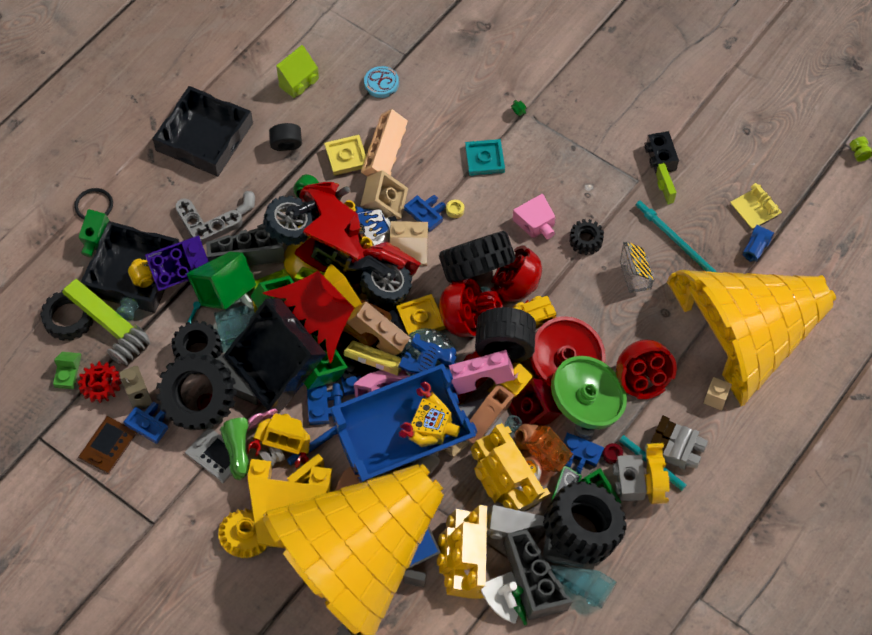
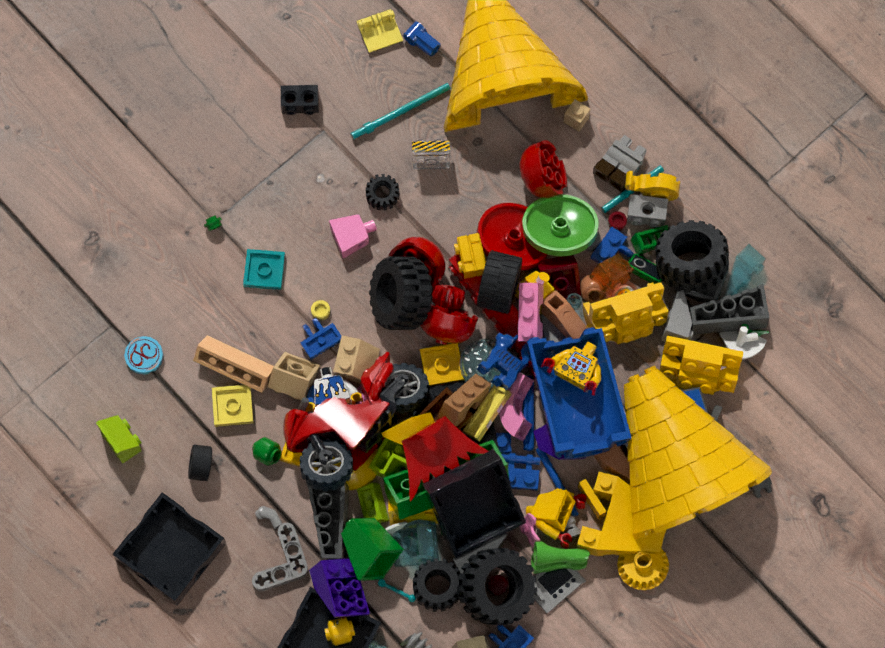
camera: 80 degrees left, 10 degrees up
(665, 183) = (337, 105): lime plate -> none

